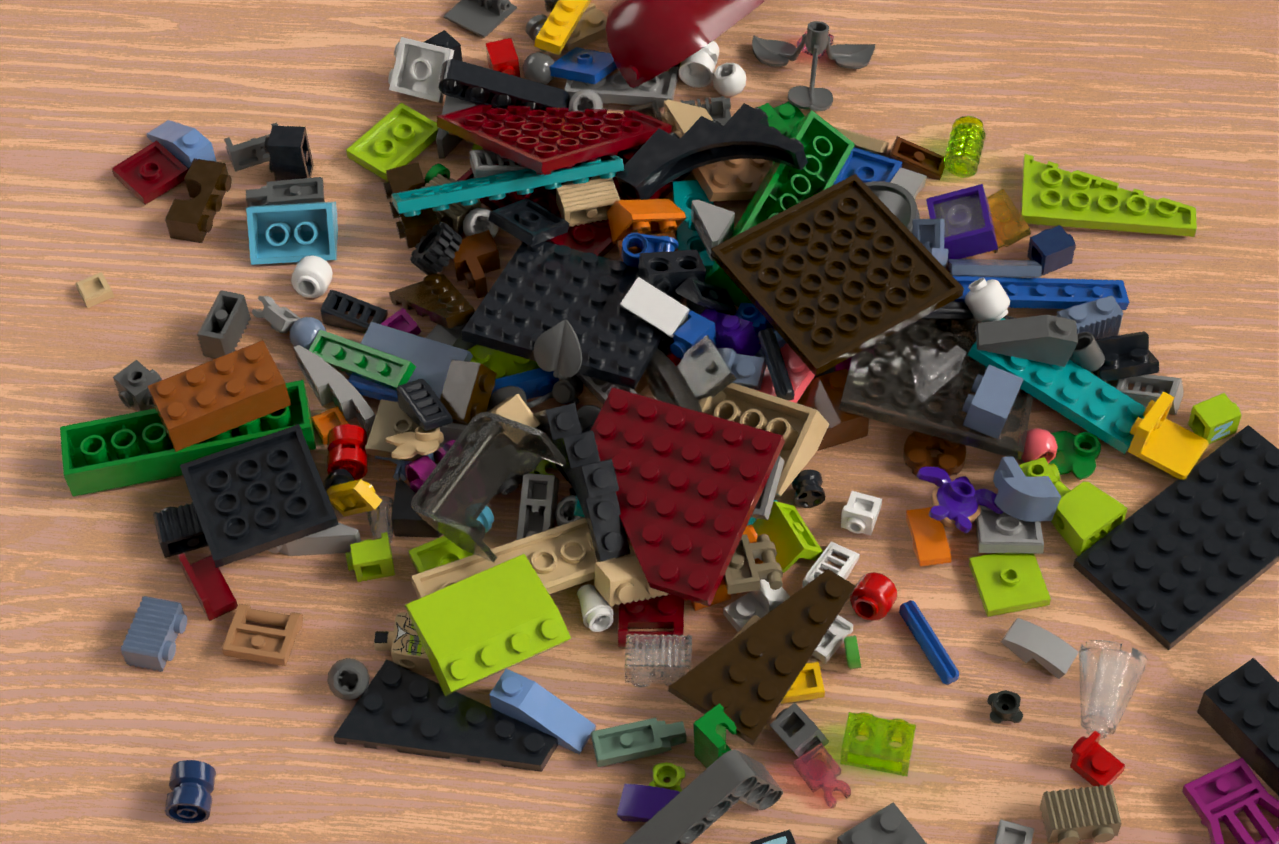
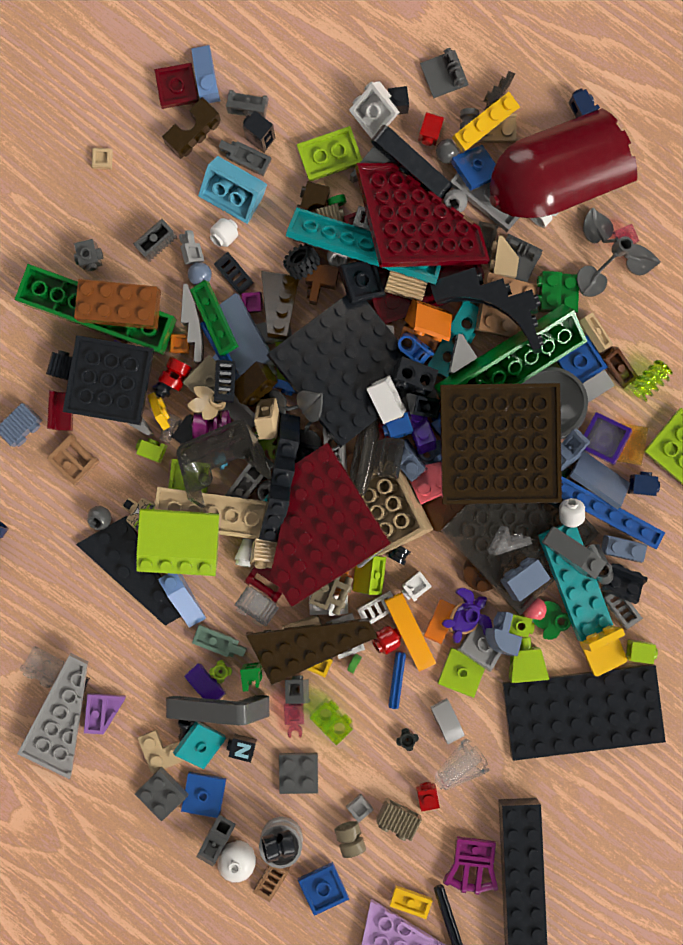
camera: 30 degrees right, 35 degrees up
(729, 79) = (553, 235): white piece -> none
(776, 364) = (428, 478): black axle -> none
(905, 570) = (410, 631): none -> light orange slope

